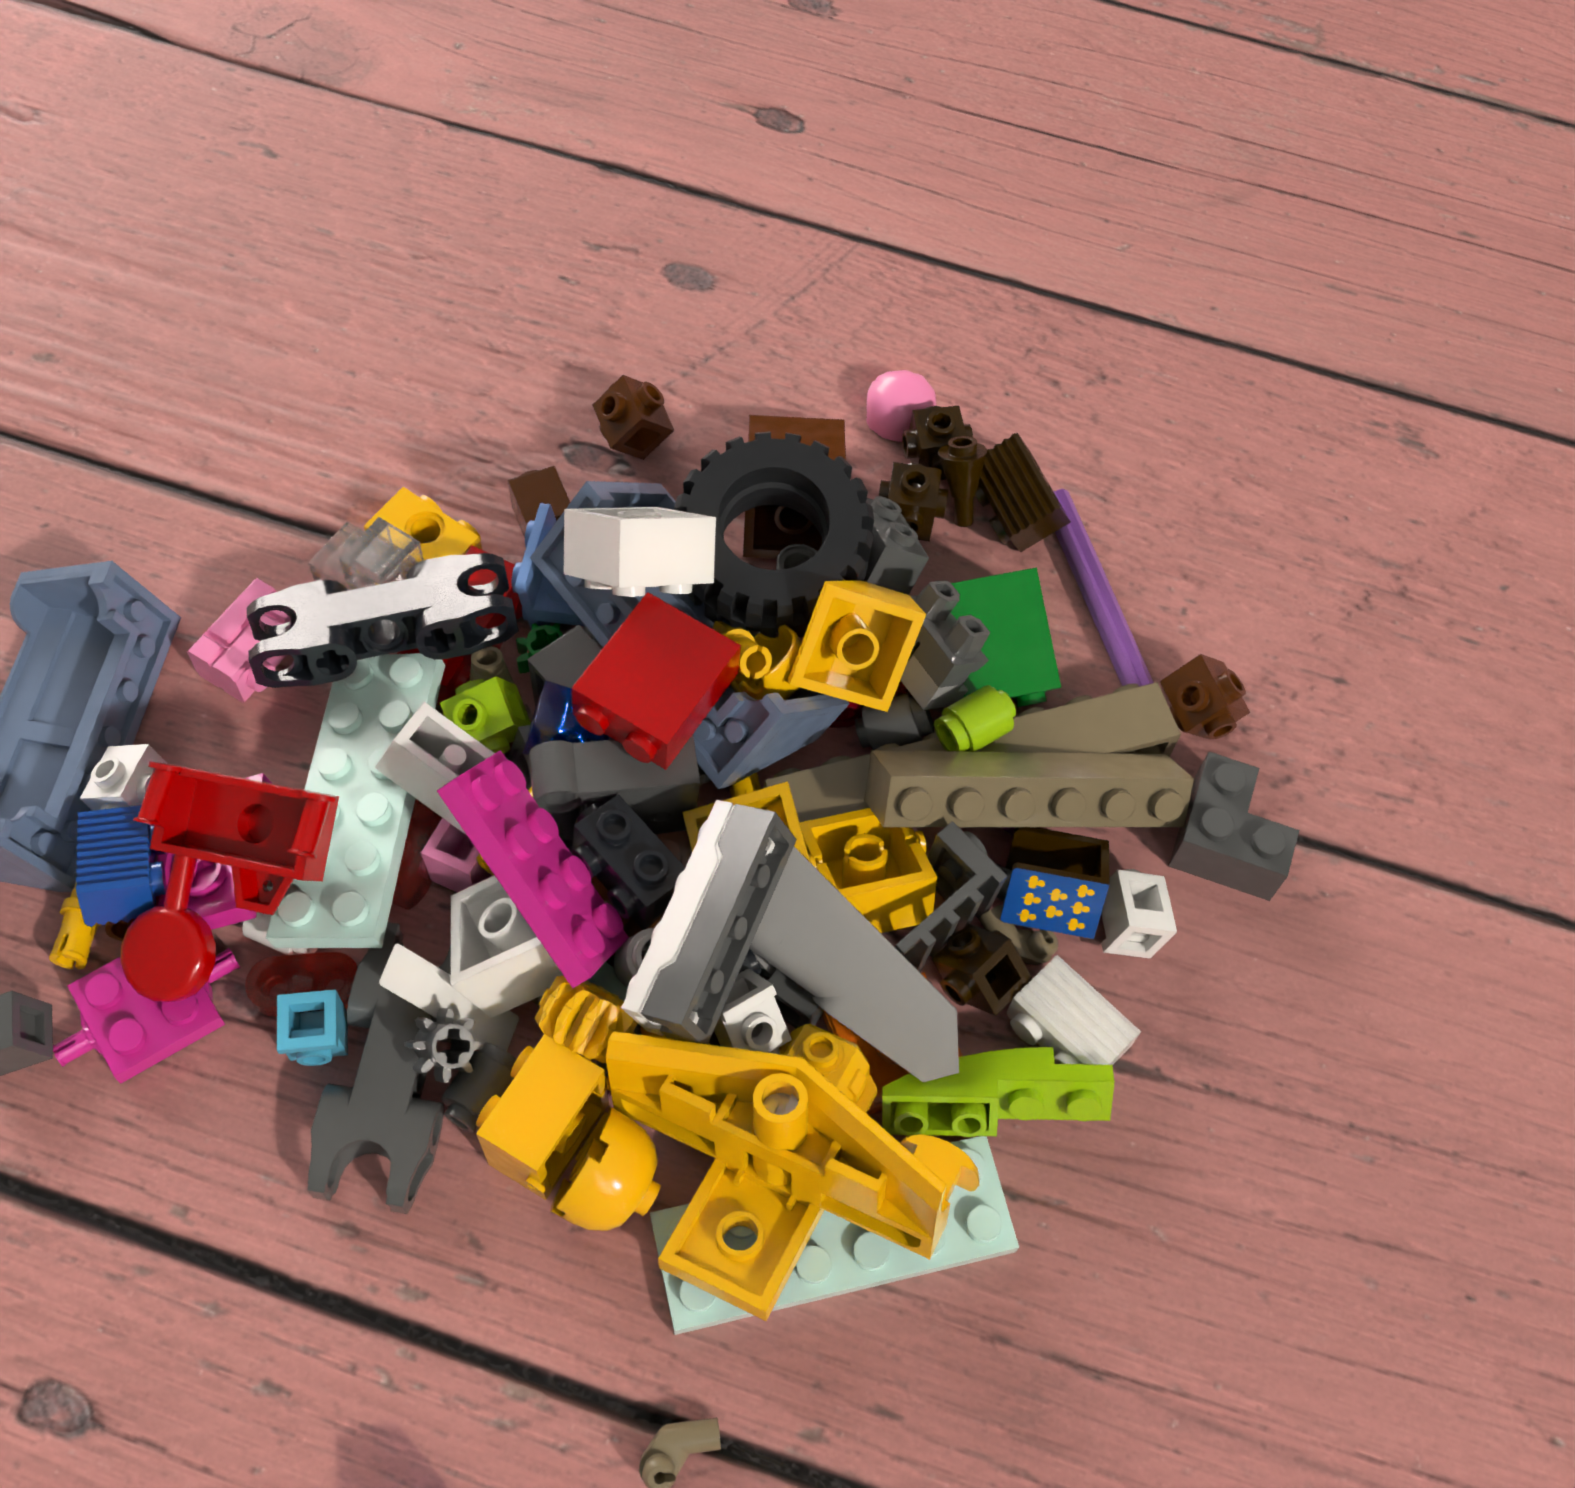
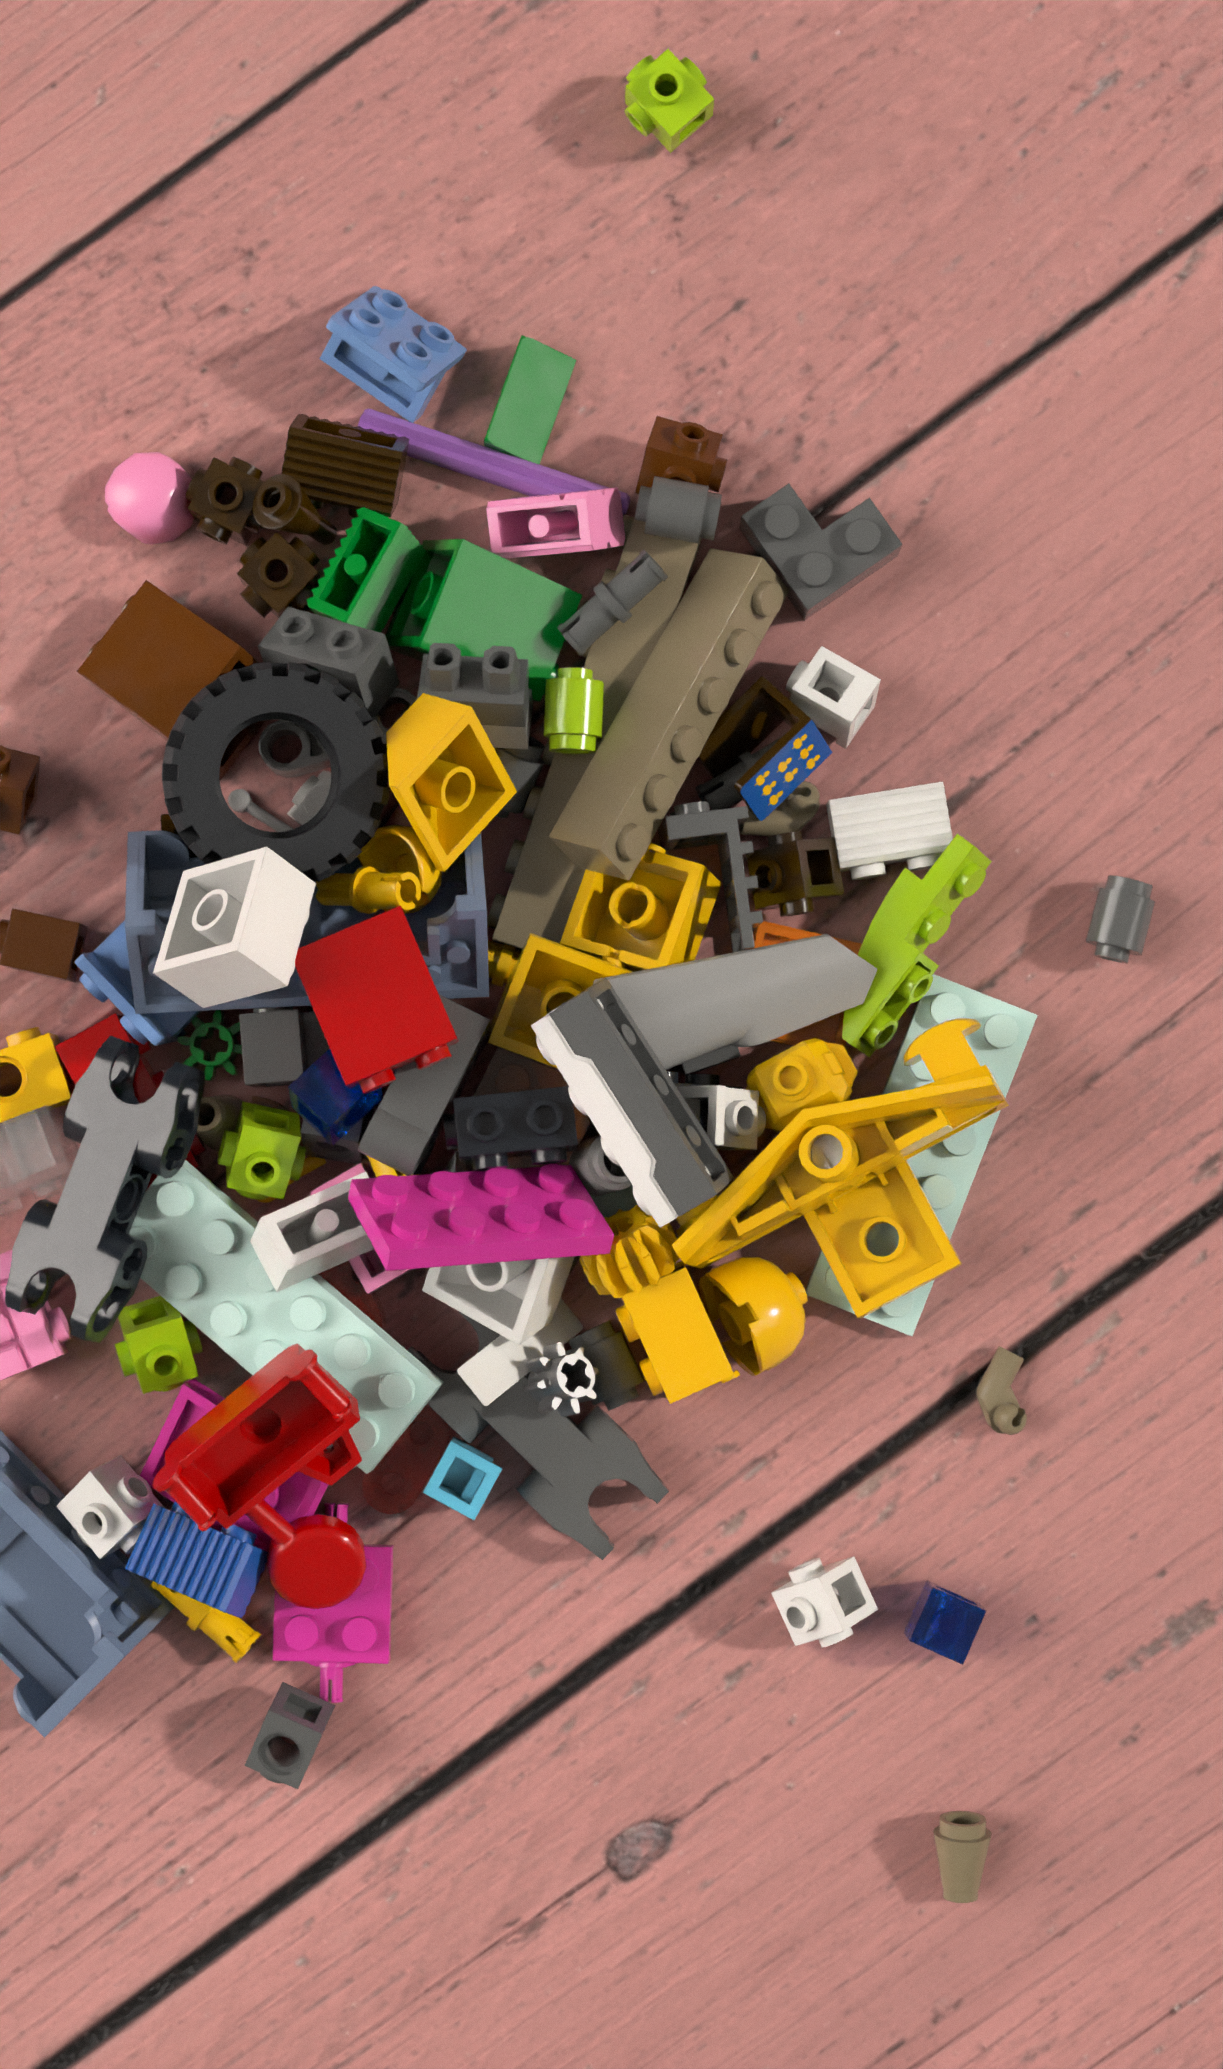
camera: 50 degrees left, 25 degrees up
(281, 742) = (157, 1345): none -> lime brick
(382, 1411) = (824, 1601): none -> white brick
(962, 544) = (368, 572): none -> green brick
(1074, 700) = (612, 602): none -> dark grey pin
(1098, 636) = (556, 523): none -> bright pink brick
(1116, 478) = (391, 351): none -> medium blue bracket
(1149, 1260) = (1121, 919): none -> dark grey brick
(1160, 583) = (529, 400): none -> slope
(1177, 701) = (678, 510): none -> dark grey brick
(1430, 540) = (667, 98): none -> lime brick

